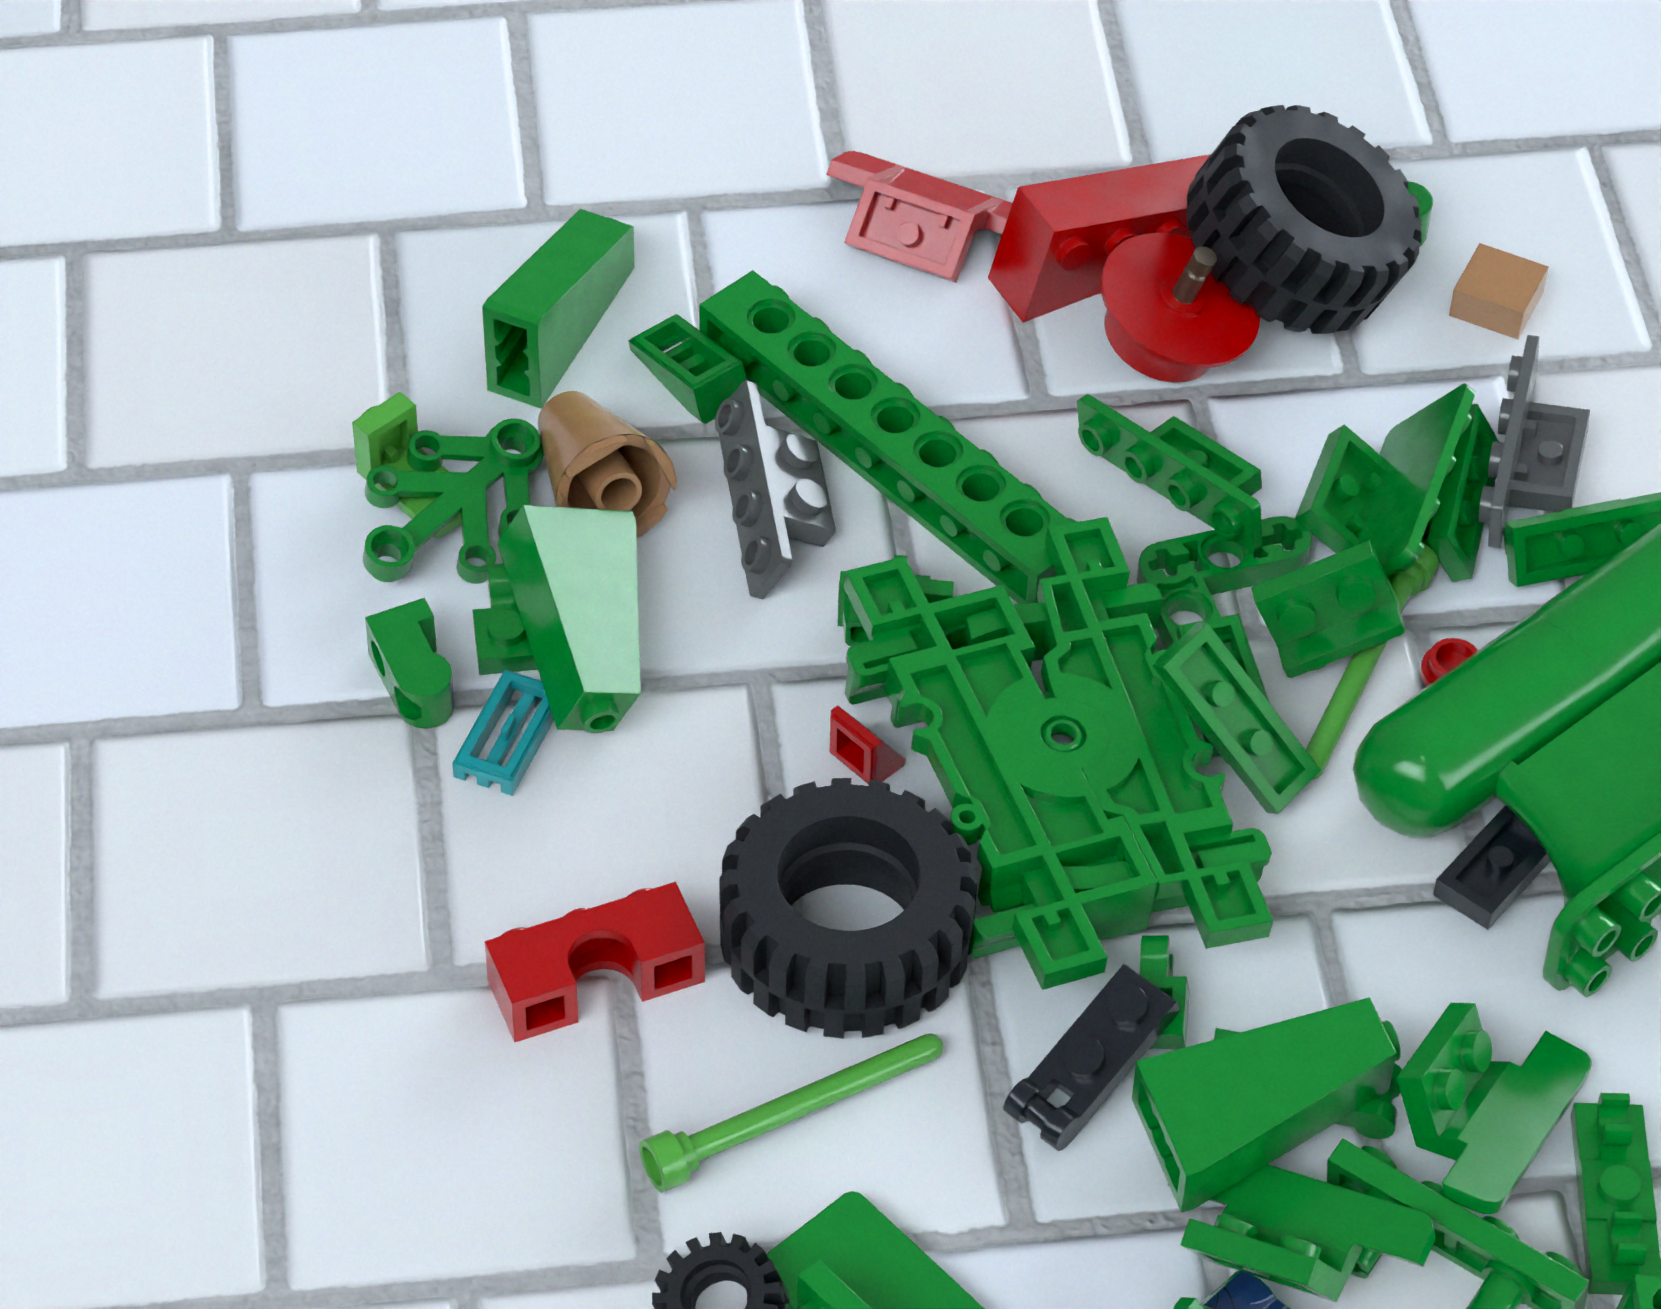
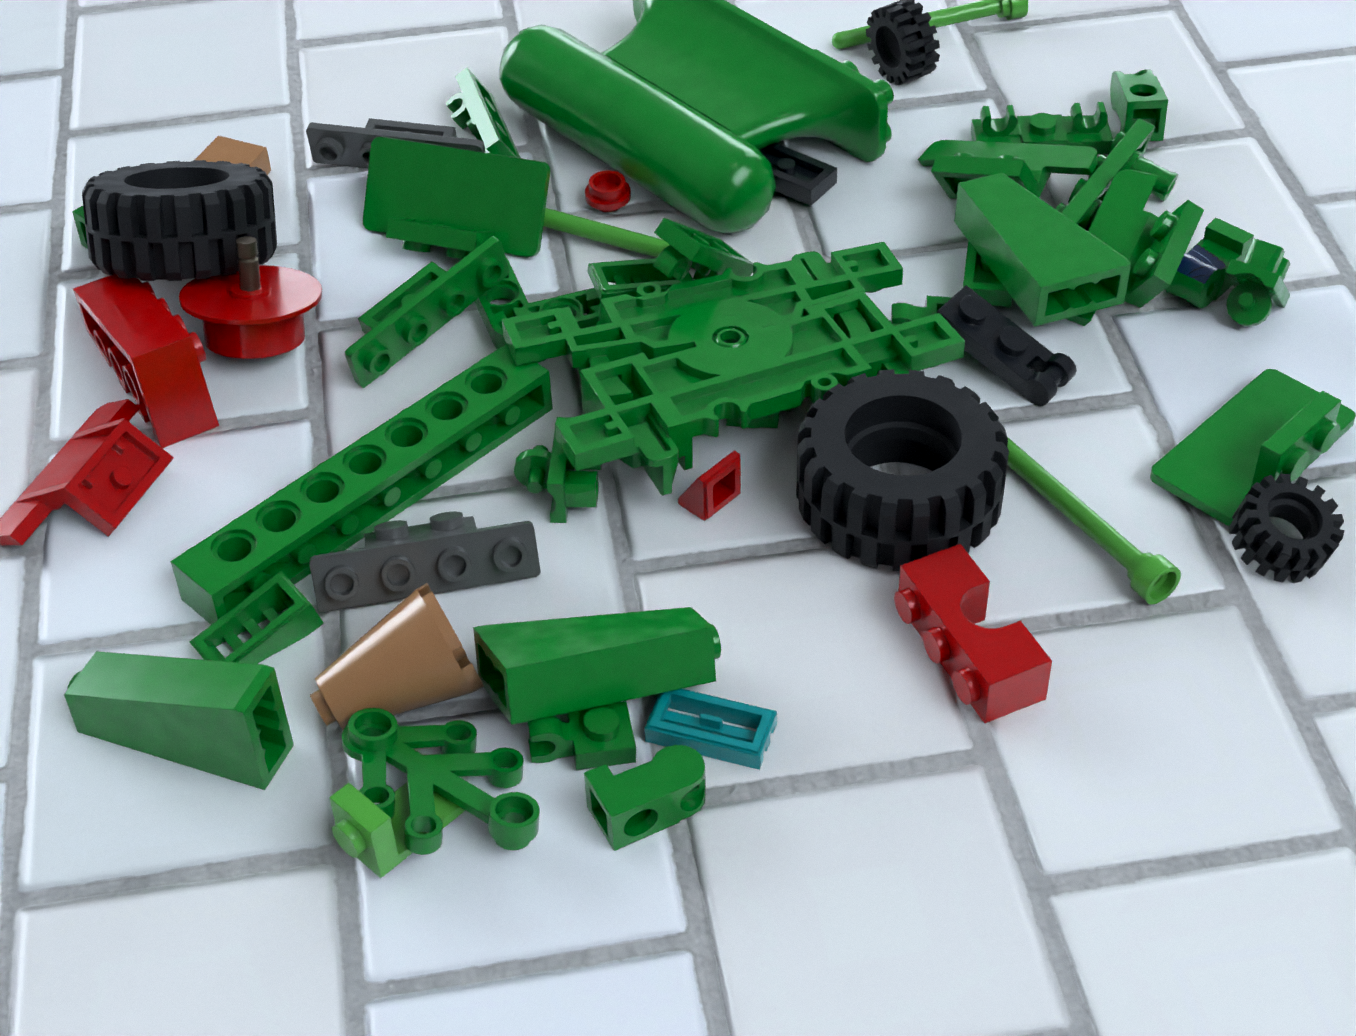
camera: 90 degrees left, 5 degrees down
(1329, 609) = (578, 224): green bracket -> none

